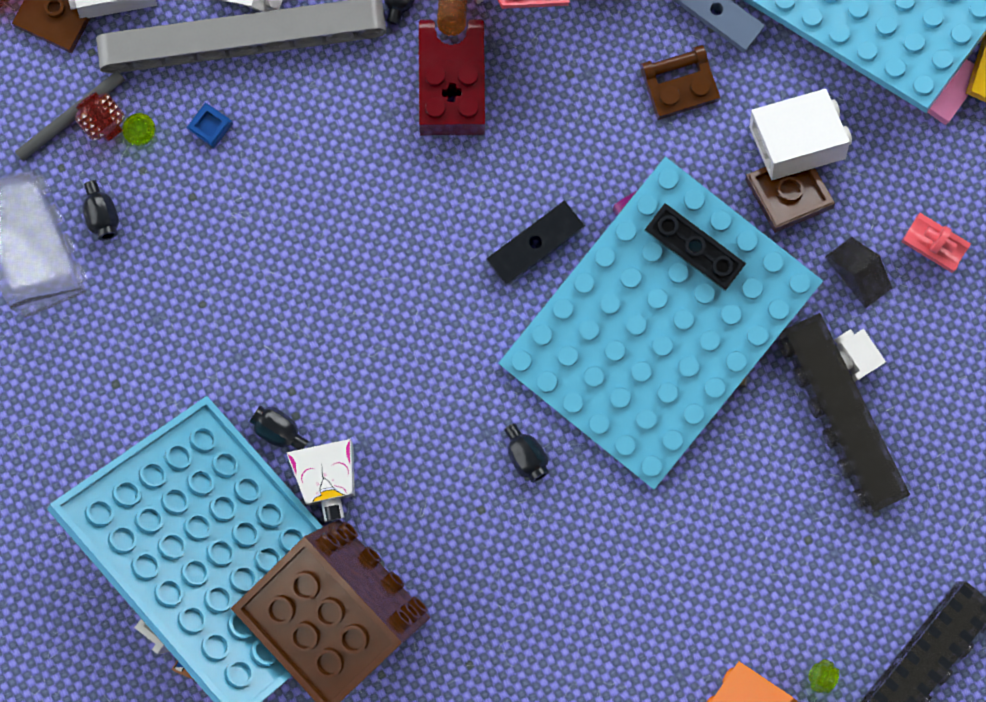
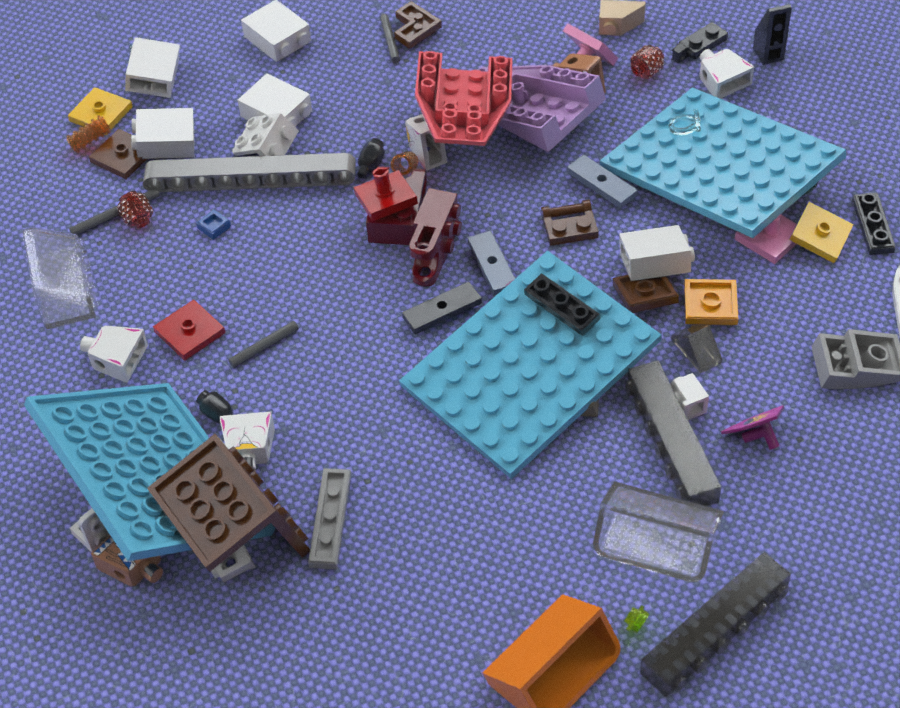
camera: 15 degrees right, 30 degrees down
(99, 212) = (119, 266): black plant -> none
(127, 353) = (115, 350): none -> white torso
(138, 129) = (161, 221): clear neon green plate -> none
(214, 305) = (189, 329): none -> plate
(315, 318) = (263, 344): none -> dark grey bar
(440, 82) = (385, 194): none -> tile
(445, 571) = (330, 519): none -> light grey tile
(511, 133) = (434, 234): none -> brick
(526, 454) = (411, 442): black plant -> none
(581, 146) = (491, 261): none -> tile
(840, 557) = (656, 532): none -> clear windscreen
(872, 201) = (711, 302): none -> light orange plate
(936, 242) = (758, 327): coral hips -> none
(944, 389) = (765, 429): none -> magenta shield

